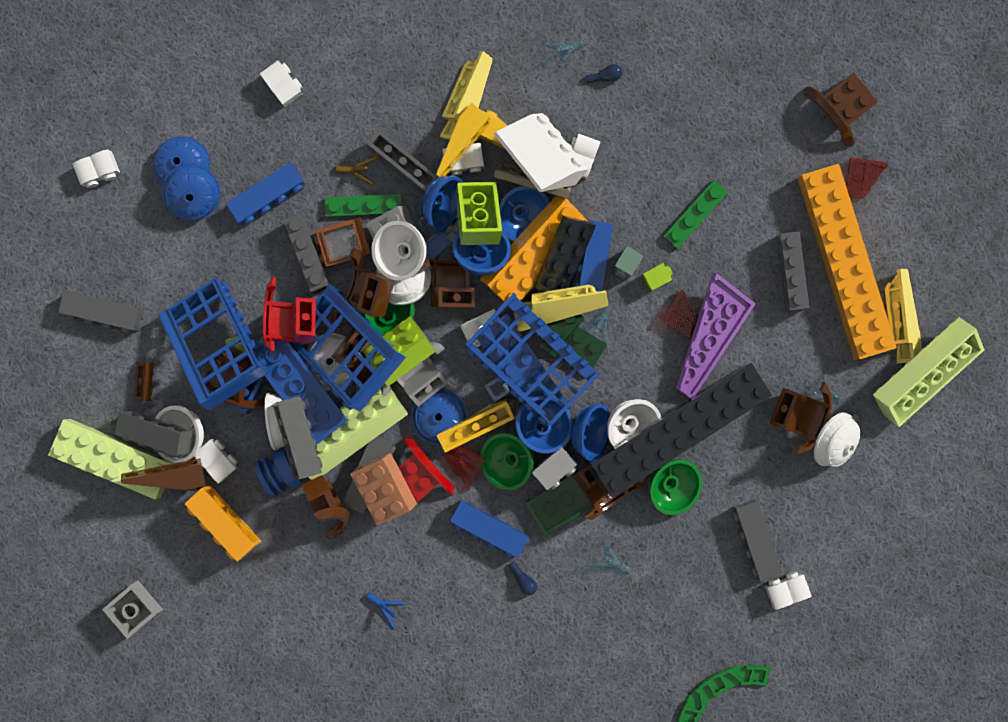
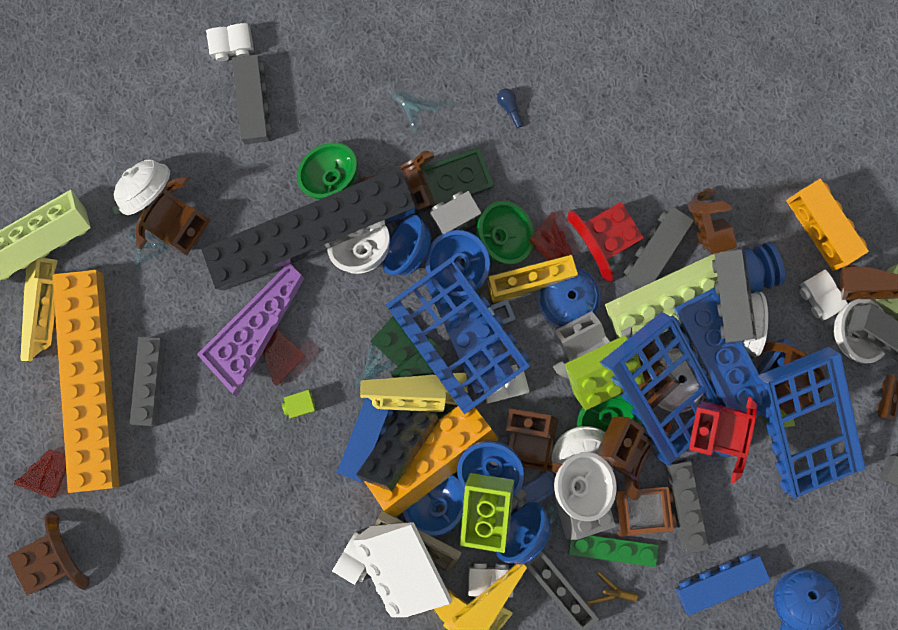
camera: 175 degrees left, 5 degrees down
(383, 489) = (647, 226): nougat brick -> none
(385, 610) = (669, 111): blue plant -> none
(489, 529) = (537, 166): blue brick -> none
(627, 263) = (329, 425): sand green brick -> none
(695, 214) = (241, 467): green plate -> none

